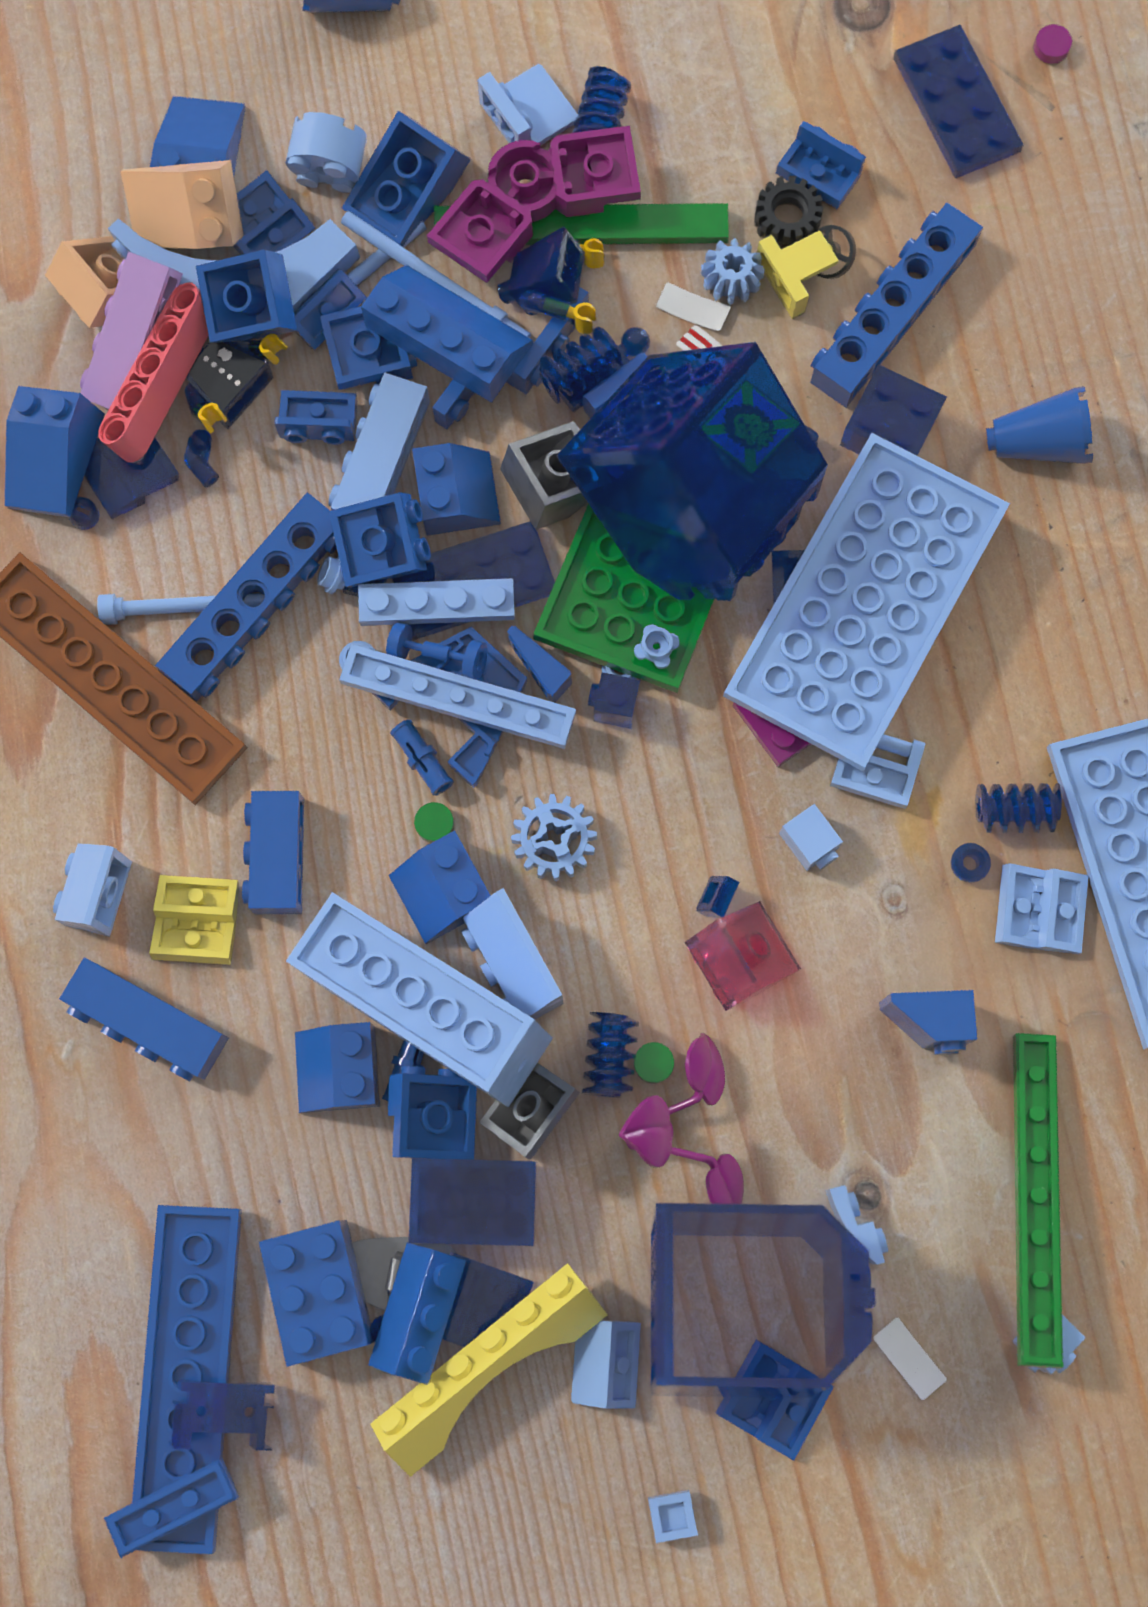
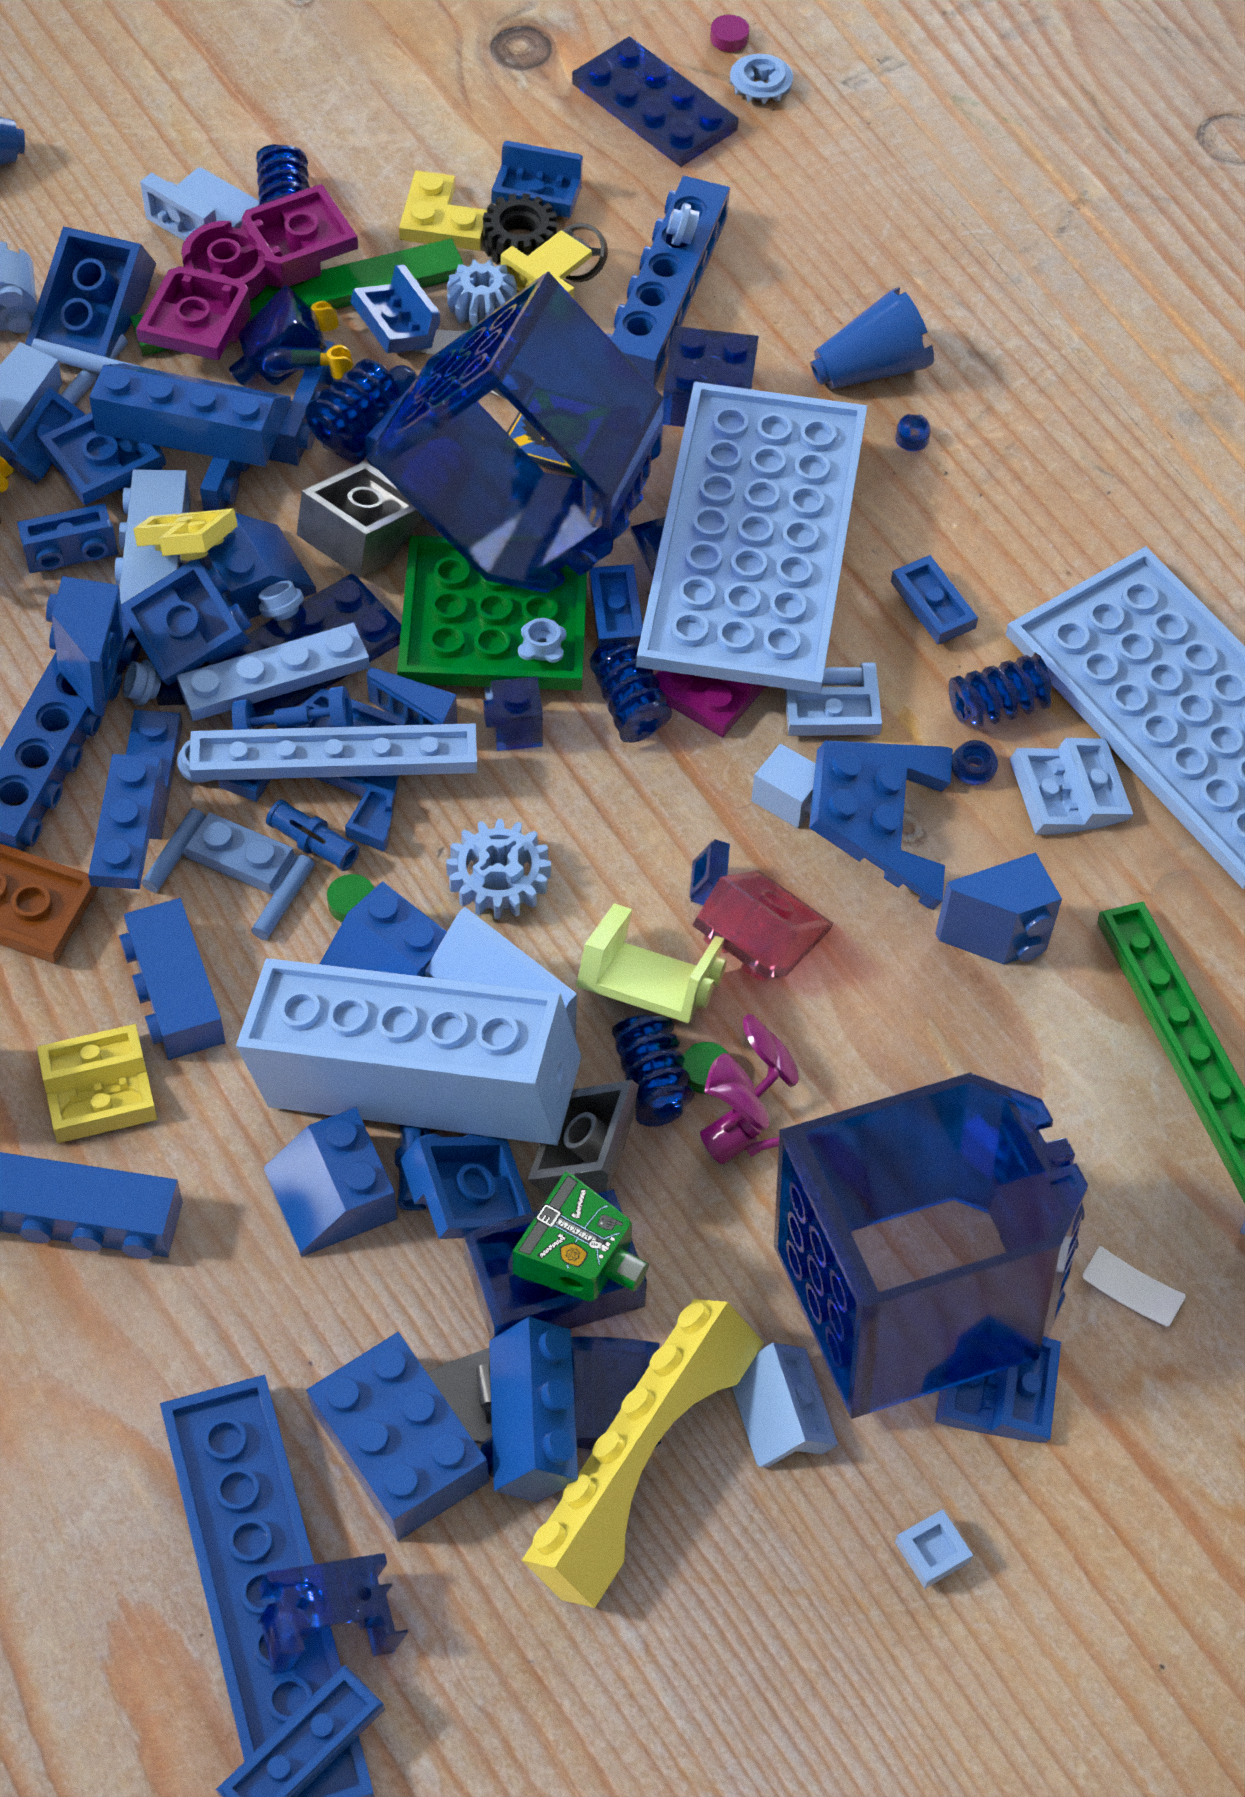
camera: 25 degrees left, 20 degrees down
(292, 541) = (87, 637): none -> blue slope
(293, 686) = (135, 800): none -> blue bracket
(361, 755) = (237, 854): none -> medium blue plate
(400, 461) = (186, 533): none -> light yellow plate
(462, 536) = (280, 600): none -> light blue plate
(489, 1207) = (578, 1244): none -> green torso
(634, 974) = (645, 976): none -> yellowish green panel
(654, 272) = (398, 313): none -> blue bracket
(712, 709) = (630, 691): none -> clear blue piece
(719, 173) = (432, 218): none -> light yellow plate
(734, 624) = (616, 604): none -> blue plate
(860, 880) = (862, 802): none -> blue wing
(923, 262) = (683, 224): none -> light blue plate
(999, 697) = (934, 599): none -> blue plate
(1041, 518) = (903, 432): none -> clear blue hinge
(1068, 92) = (764, 68): none -> light blue gear

